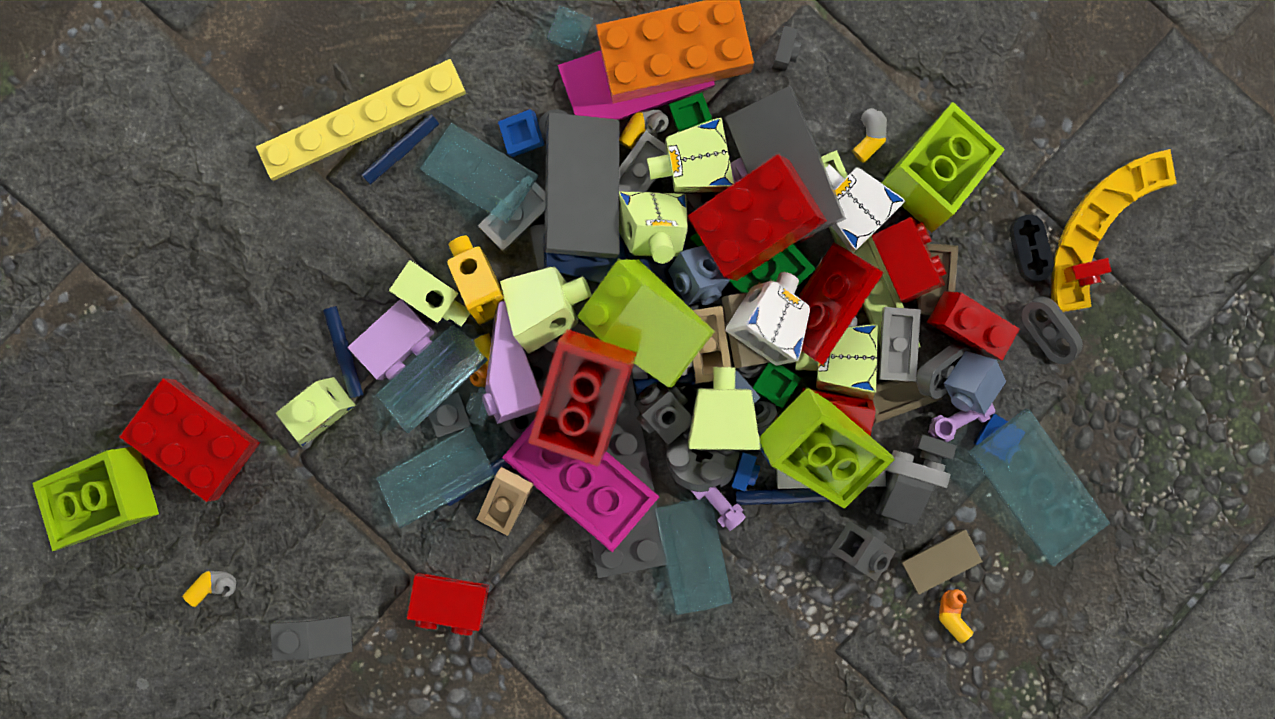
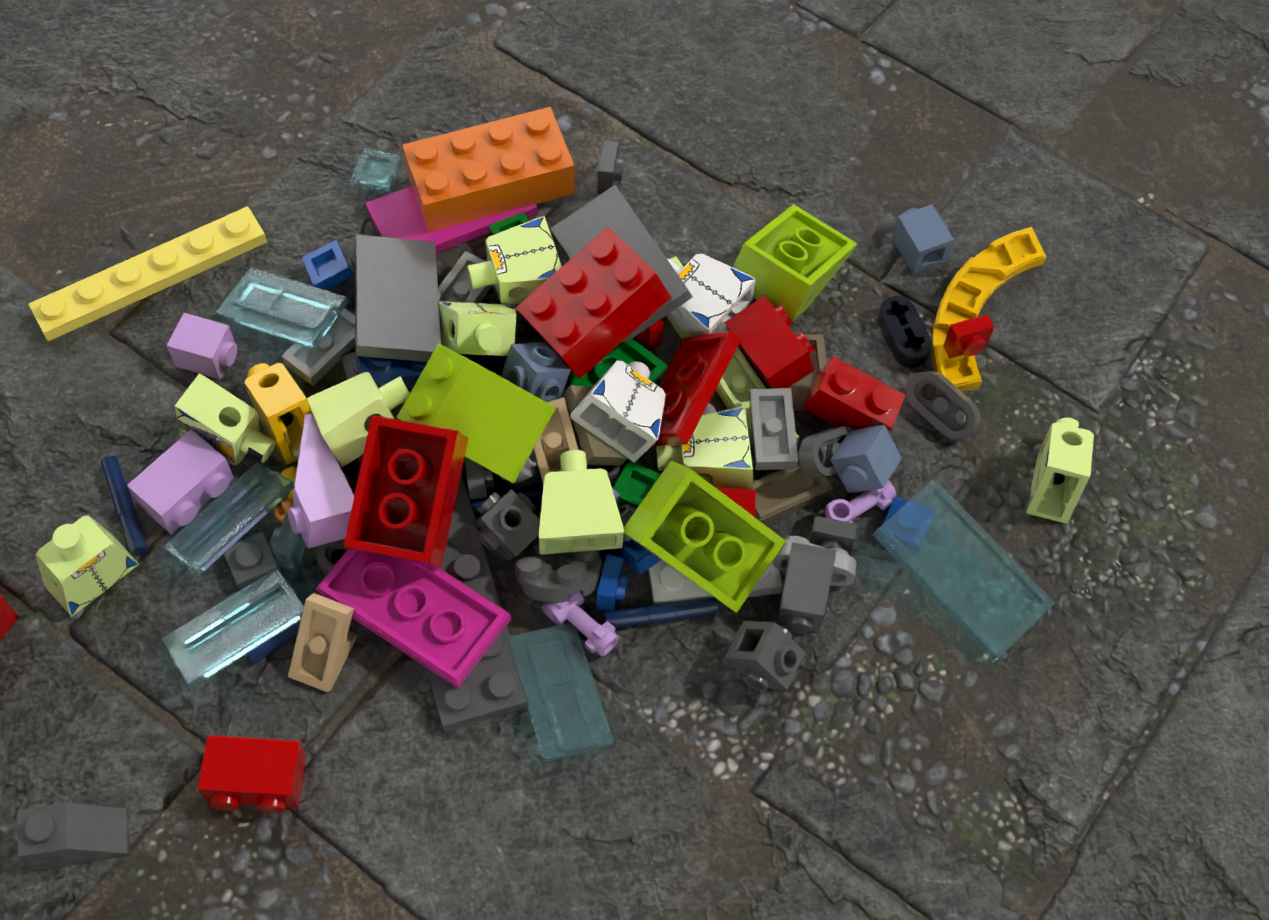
camera: 10 degrees left, 25 degrees down
(400, 148) = (192, 296): dark blue piece -> none
(410, 207) = (202, 346): none -> lavender brick
(650, 121) = (473, 244): arm -> none
(875, 134) = (716, 236): arm -> none
(941, 561) = (863, 668): dark tan tile -> none
(950, 614) = (886, 726): arm -> none
(1065, 154) = (922, 238): none -> sand blue brick
(1142, 406) = (1067, 452): none -> yellowish green torso

